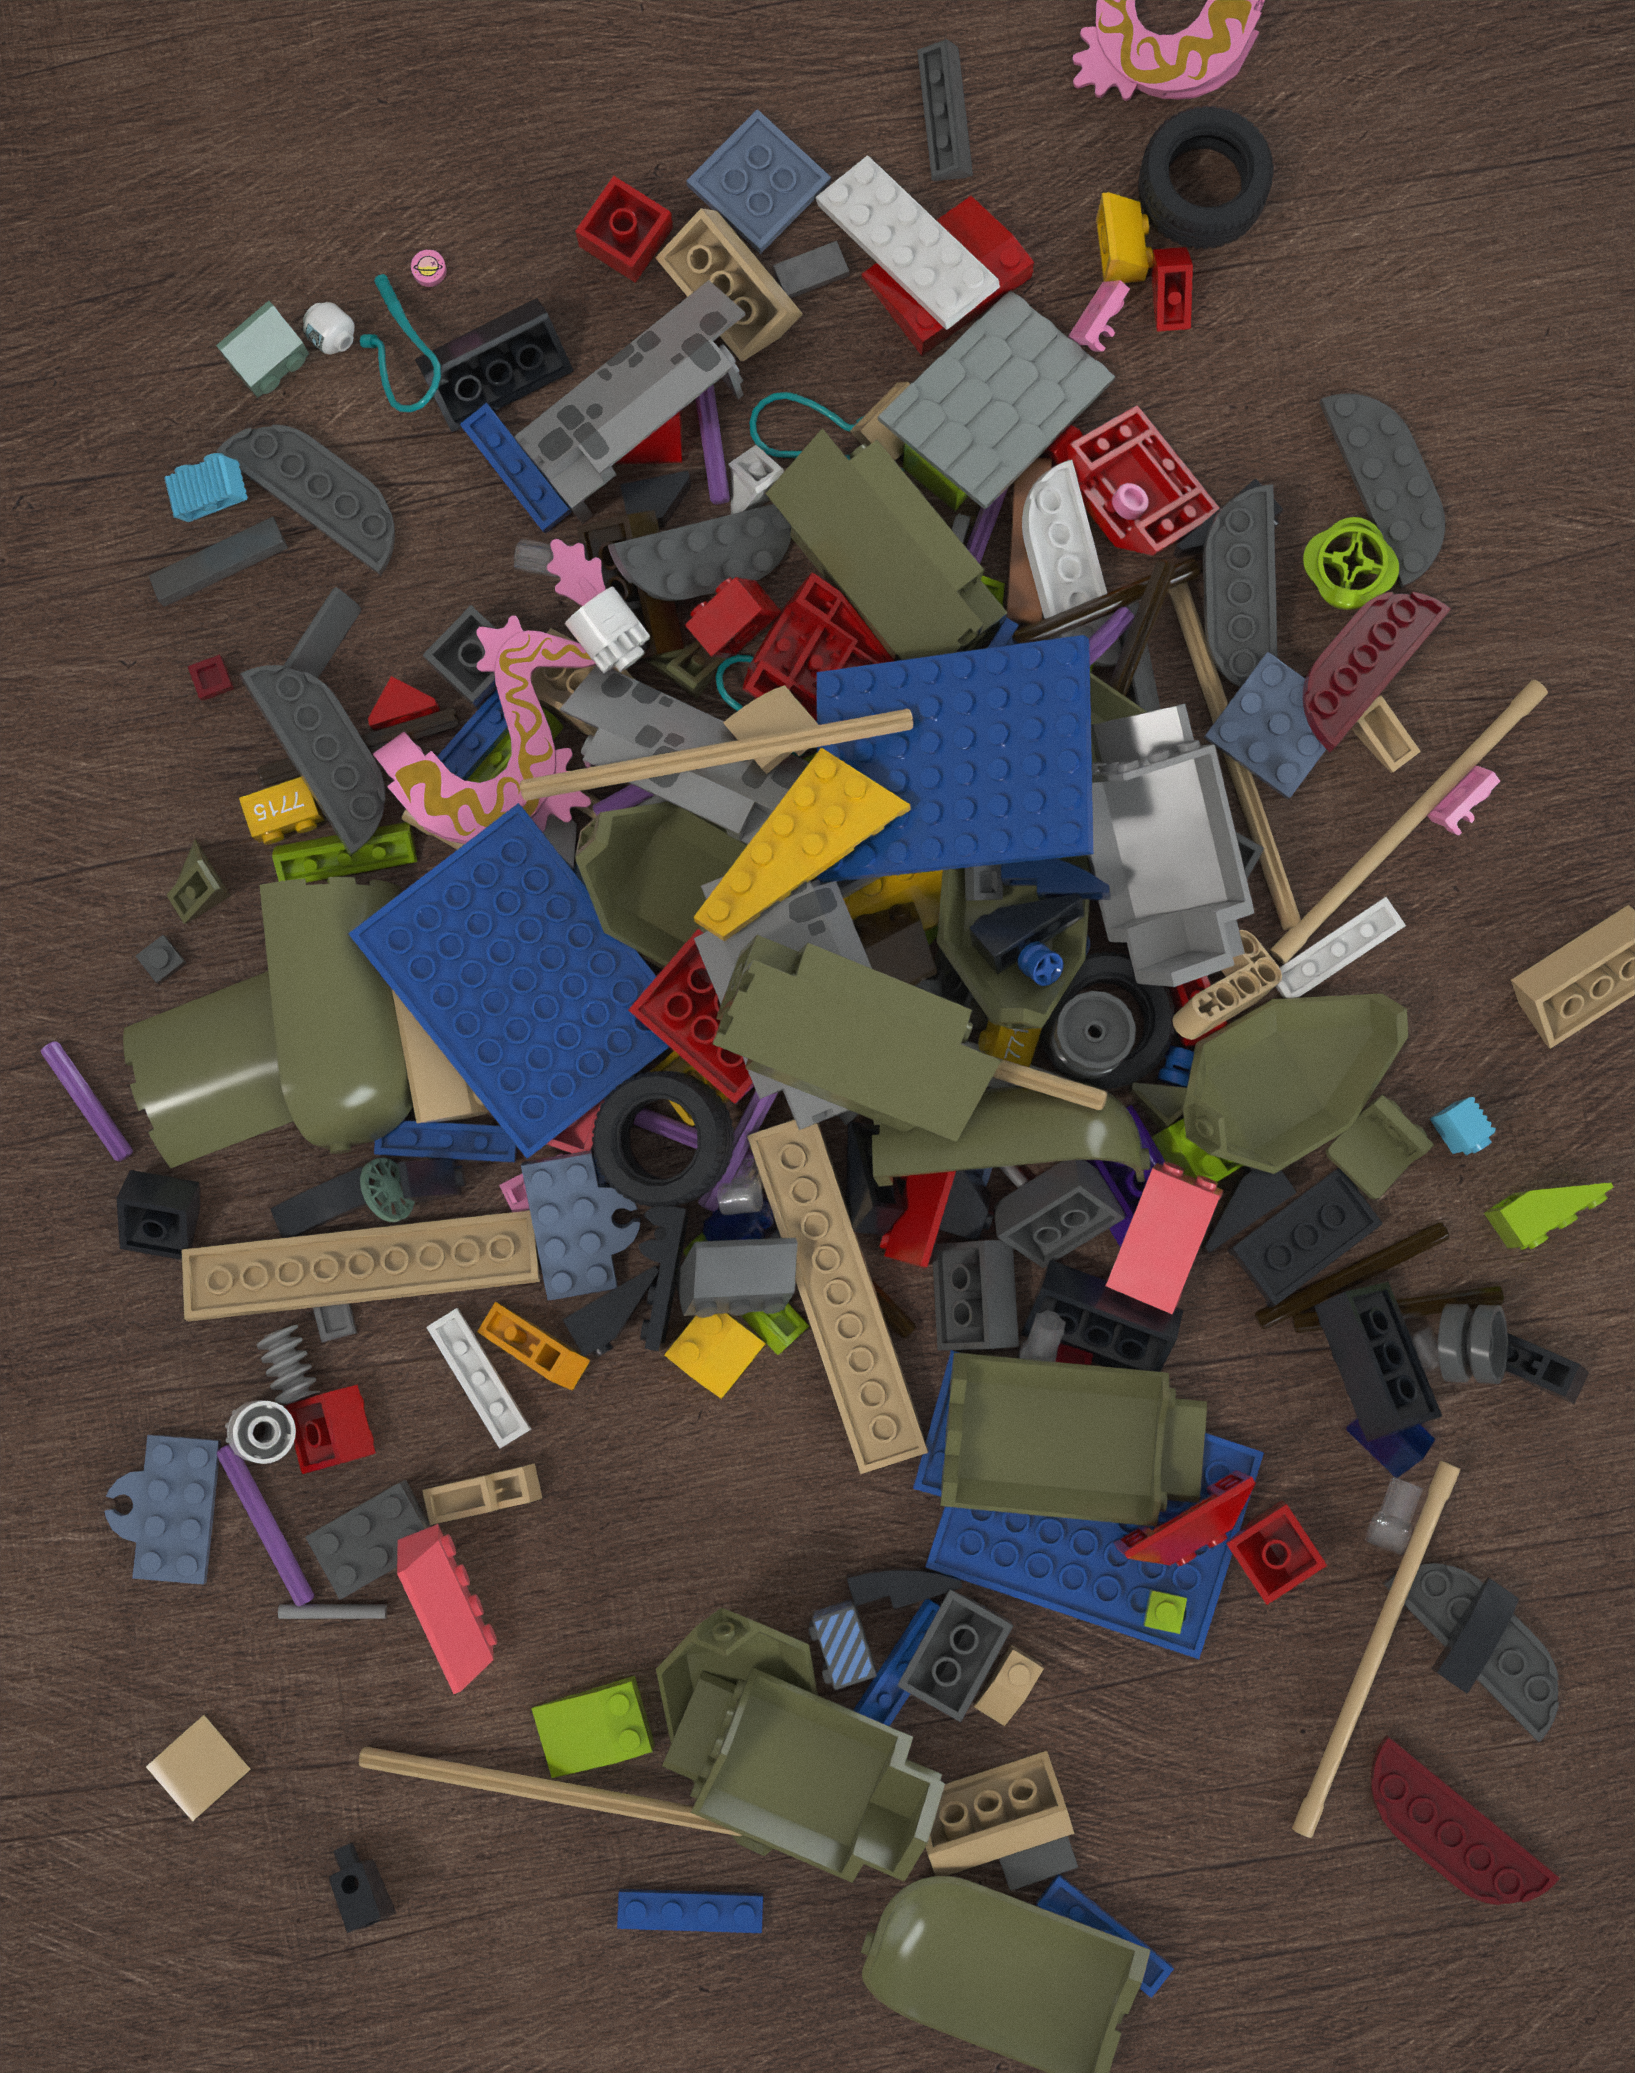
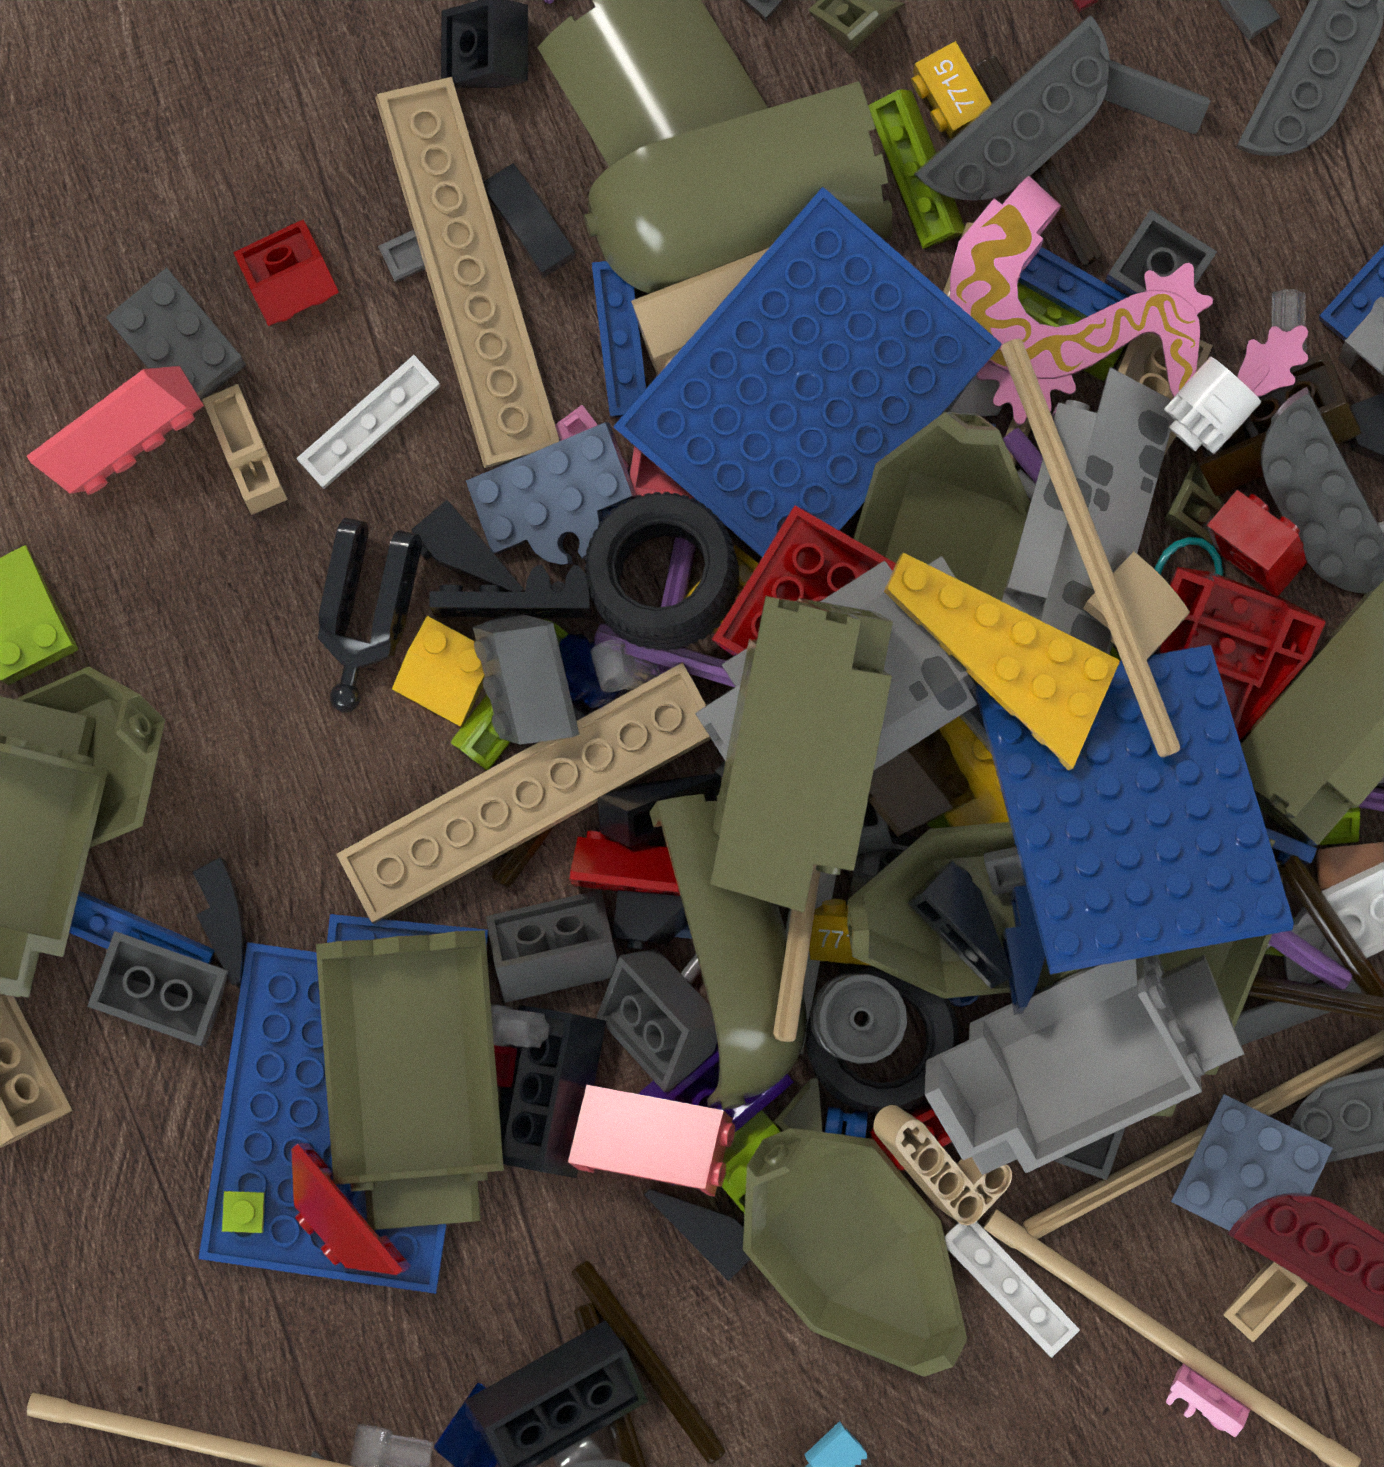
camera: 75 degrees right, 0 degrees up
(170, 1509) = (172, 119): sand blue plate -> none
(266, 1526) = (172, 223): medium lavender axle -> none
(278, 1434) = (268, 218): white gear -> none
(287, 1366) = (345, 213): light grey piece -> none
(332, 1611) = (92, 313): light grey bar -> none
(385, 1189) = (554, 284): sand green wheel -> none
(400, 704) = (1093, 196): red slope -> none
(431, 1179) = (573, 328): black slope -> none
(533, 1346) = (412, 474): light orange slope -> none
(634, 1431) = (339, 601): none -> black piece
(842, 1644) = (149, 865): container -> none
(1009, 1685) = (135, 1056): tan slope -> none
(1040, 963) = (929, 955): blue wheel -> none
(1275, 1552) = (328, 1322): red slope -> none
(1305, 1237) = (681, 1300): black hinge -> none
(1378, 1147) = (795, 1365): olive bracket -> none

